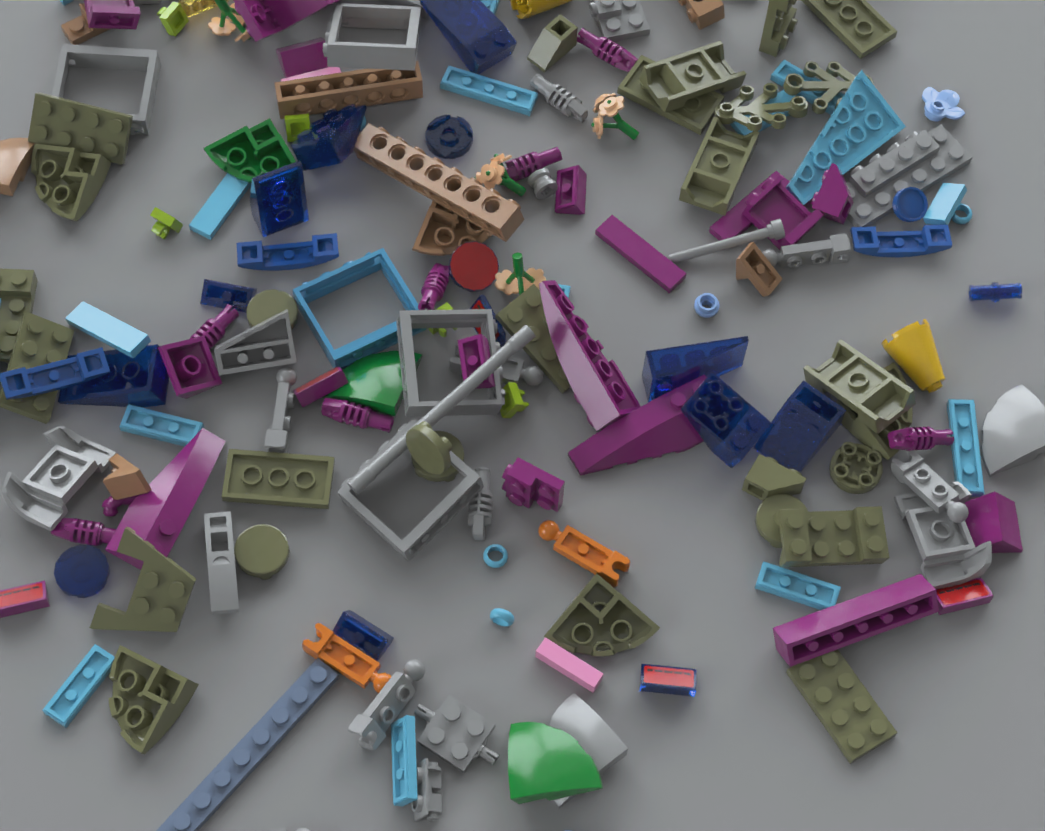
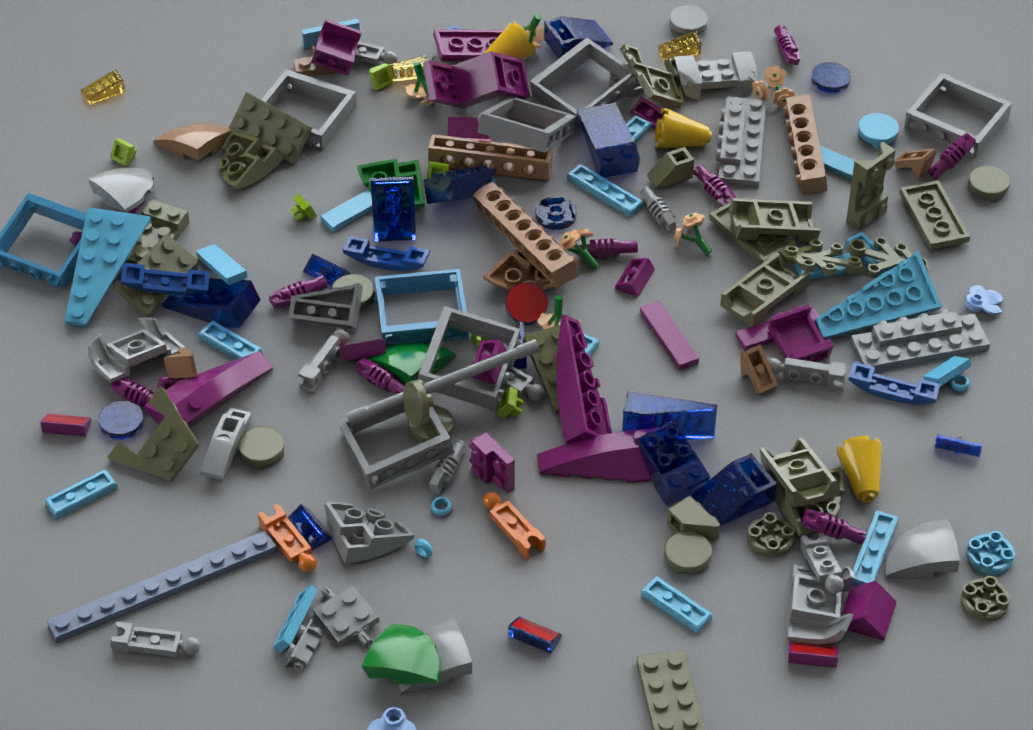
camera: 25 degrees right, 15 degrees down
(146, 698) = (125, 515): olive brick -> none
(190, 366) = (268, 305): magenta slope -> none
(278, 479) = (299, 402): olive plate -> none
(386, 706) = (301, 576): light grey plate -> none
(427, 620) = (362, 533): none -> light grey brick
(434, 287) = (488, 307): magenta hinge -> none
(542, 183) = (612, 263): light grey wheel -> none
(569, 665) = (460, 598): bright pink piece -> none
(601, 622) = (499, 575): olive brick -> none
(706, 299) = (704, 385): light blue plate -> none
(772, 230) = (785, 345): light grey piece -> none
(832, 537) = (720, 574): olive piece -> none
(834, 196) = (850, 336): magenta slope -> none
(855, 620) = (710, 637): magenta brick -> none
(910, 204) = (915, 362): blue piece -> none

